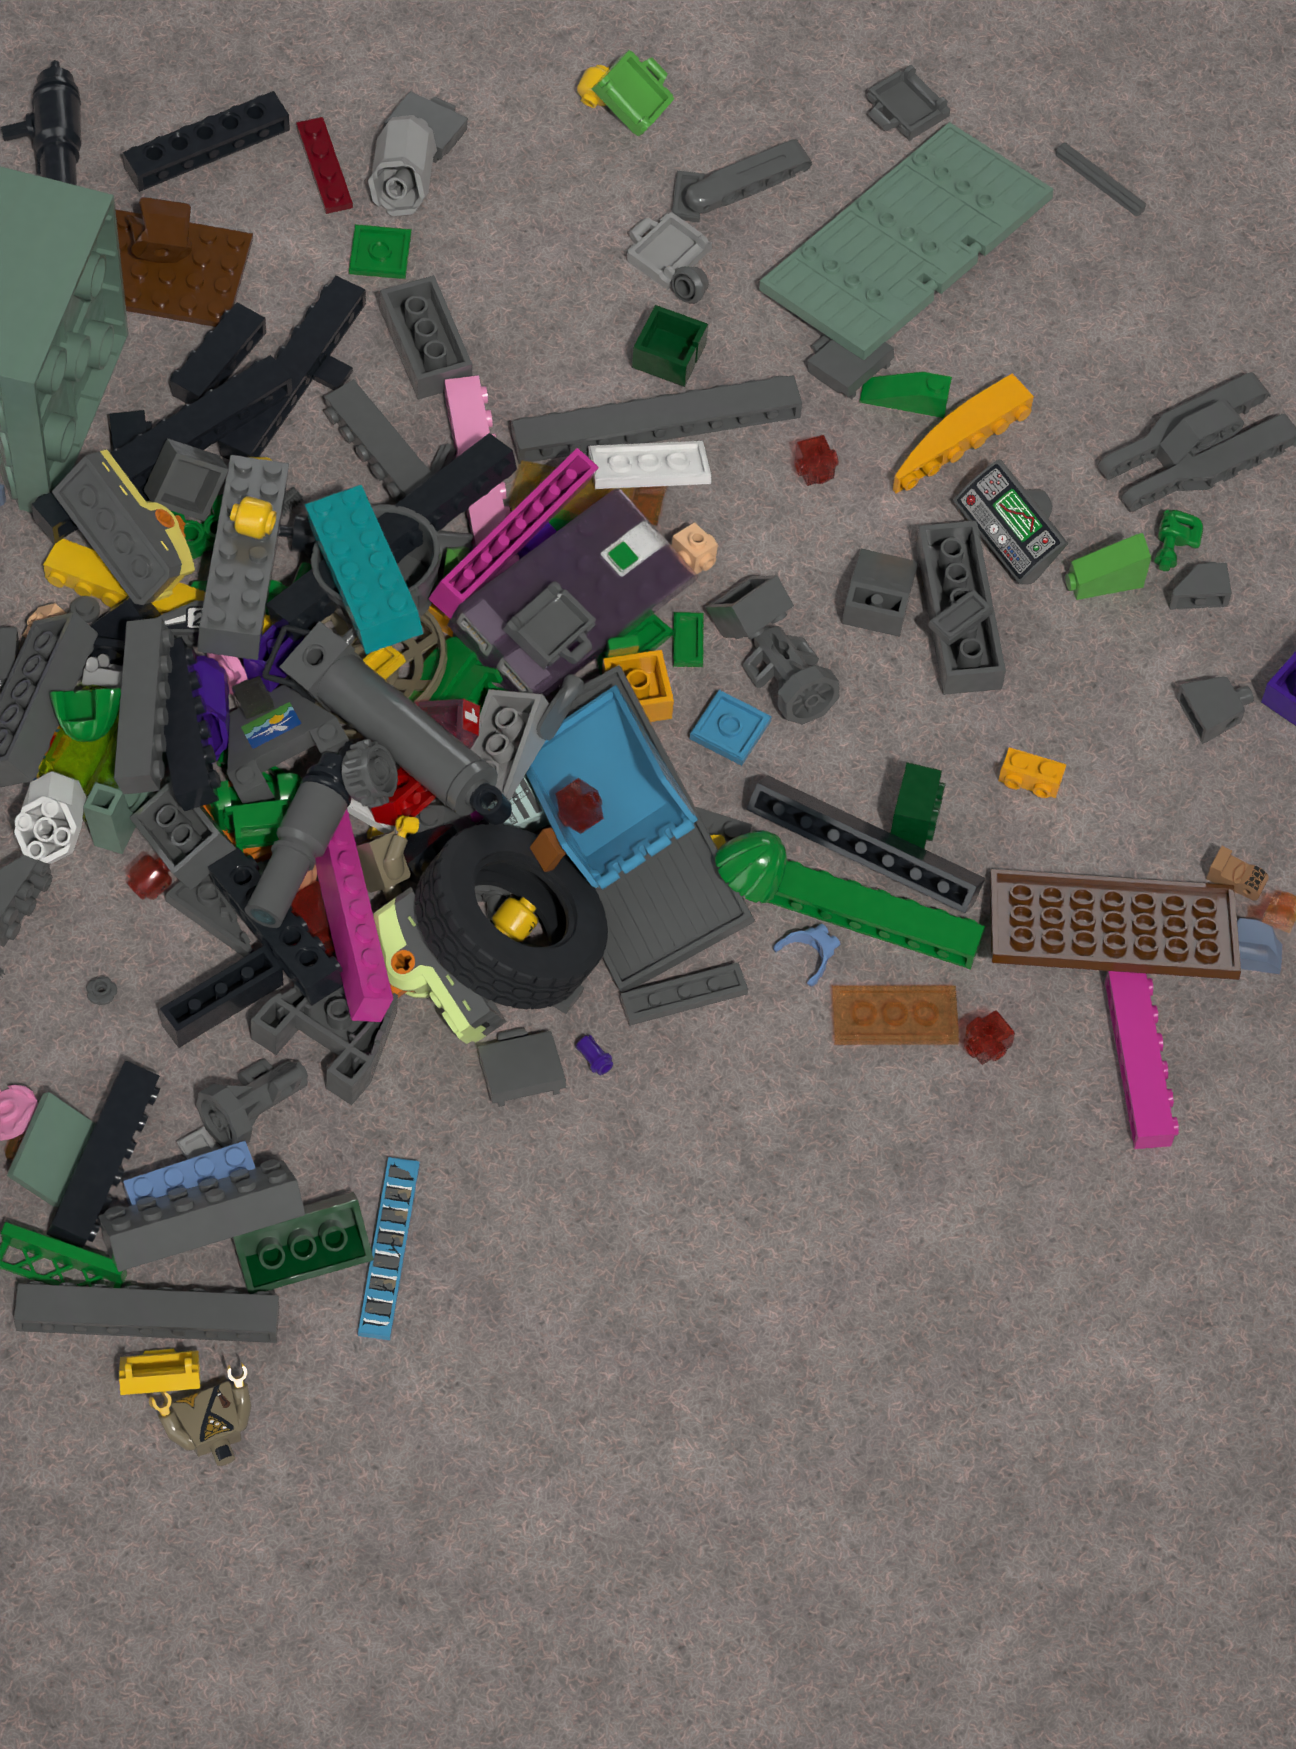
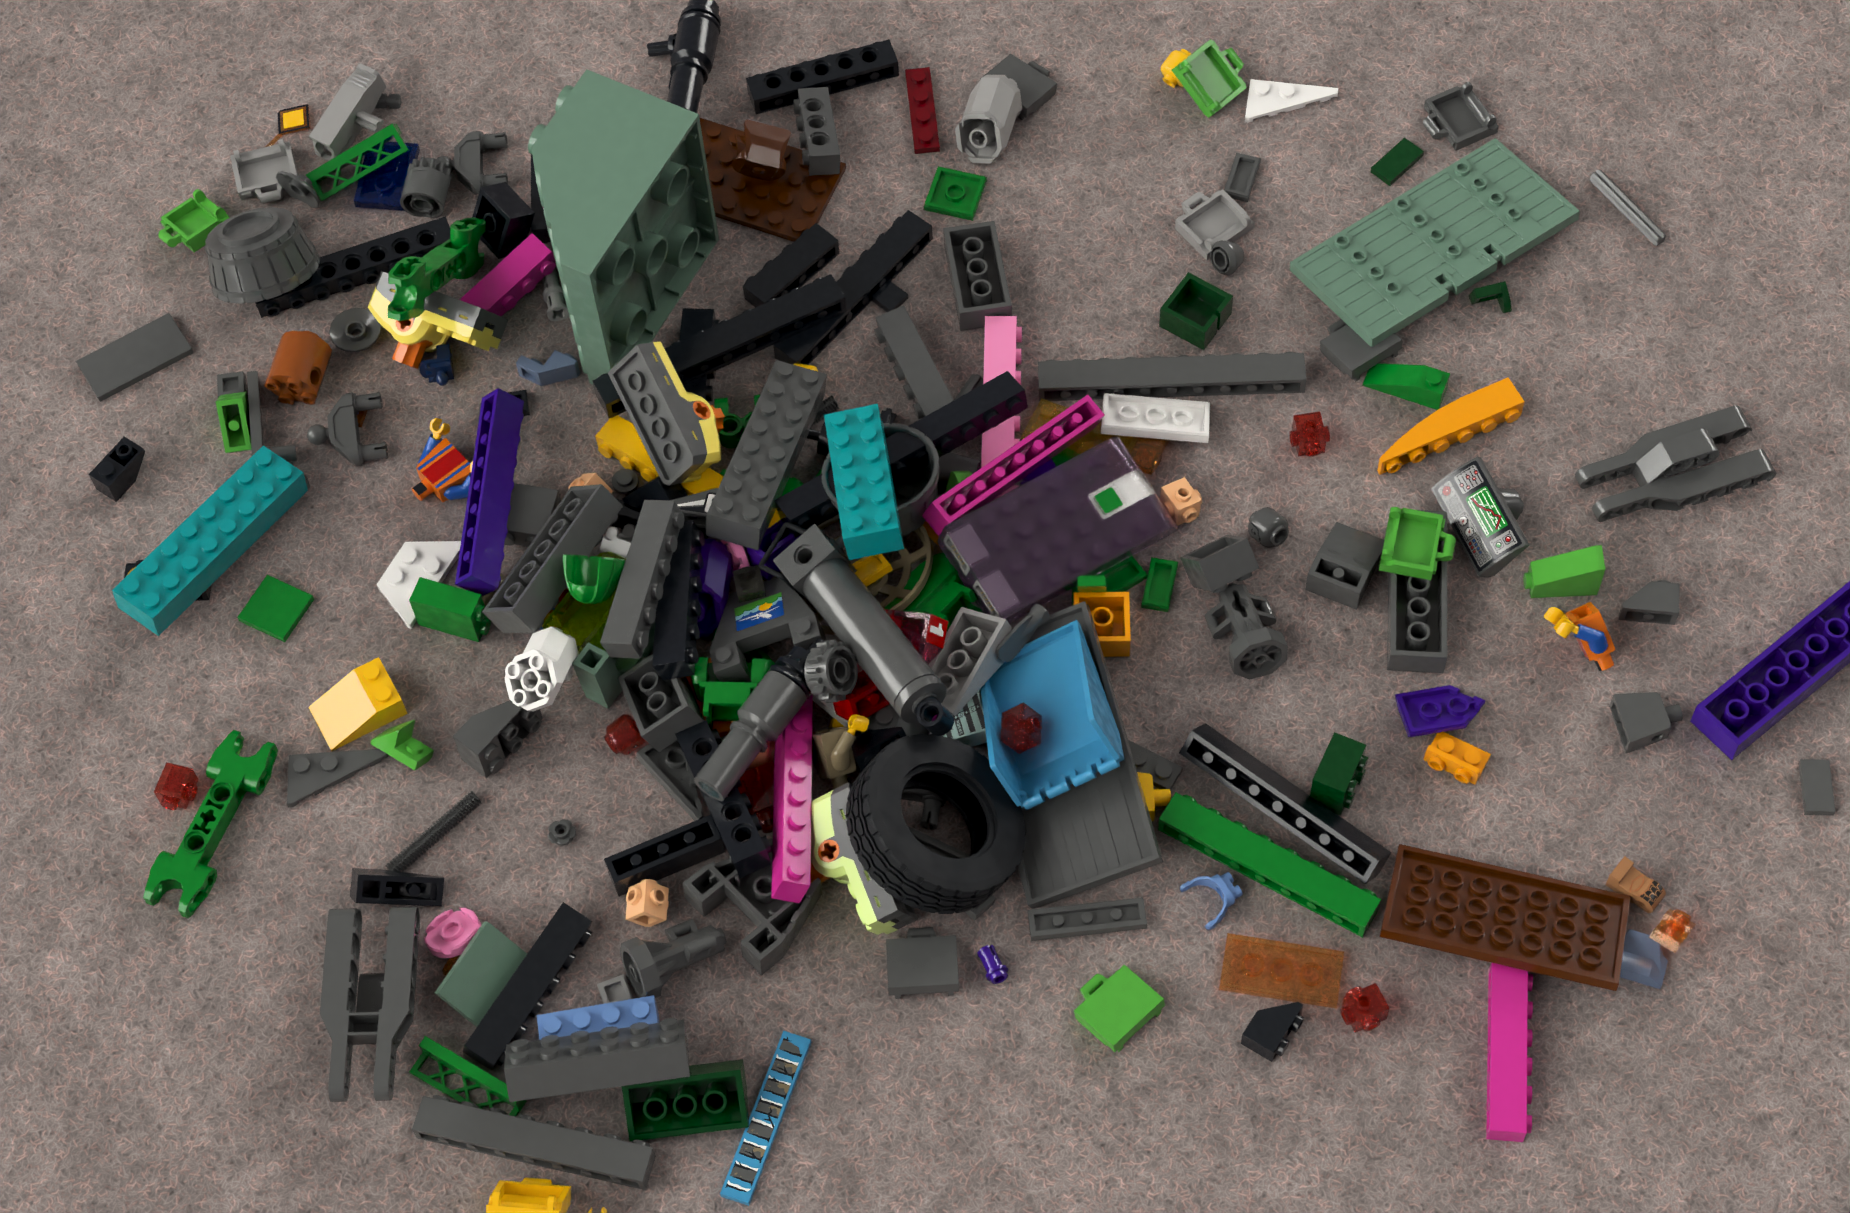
camera: 20 degrees right, 0 degrees up
(186, 479) = (732, 377): dark grey piece -> none
(214, 1049) = (647, 903): none -> light nougat brick
(216, 201) = (817, 130): none -> dark grey brick
(253, 517) = (778, 420): yellow head -> none
(515, 918) = (942, 825): yellow head -> none
(547, 849) = (979, 766): dark orange tile -> none
(551, 626) = (1027, 557): dark grey piece -> none
(705, 106) = (1277, 97): none -> white wing
(730, 727) = (1181, 672): dark azure plate -> none
(734, 1077) = (1117, 1007): none -> bright green piece
(748, 177) = (1299, 166): dark grey piece -> none
(753, 865) = (1169, 809): green hair -> none
(791, 563) = (1268, 527): none -> dark grey head
(850, 159) = (1397, 161): none -> dark green tile
(896, 1073) = (1270, 1028): none -> black slope
(949, 557) = (1413, 543): none -> bright green piece
(960, 617) = (1413, 601): dark grey tile -> none
(983, 284) = (1495, 291): none -> dark green tile
(1002, 727) = (1436, 710): none -> dark purple tile
(1144, 623) = (1589, 631): none -> torso
(1176, 534) = (1634, 548): green piece -> none

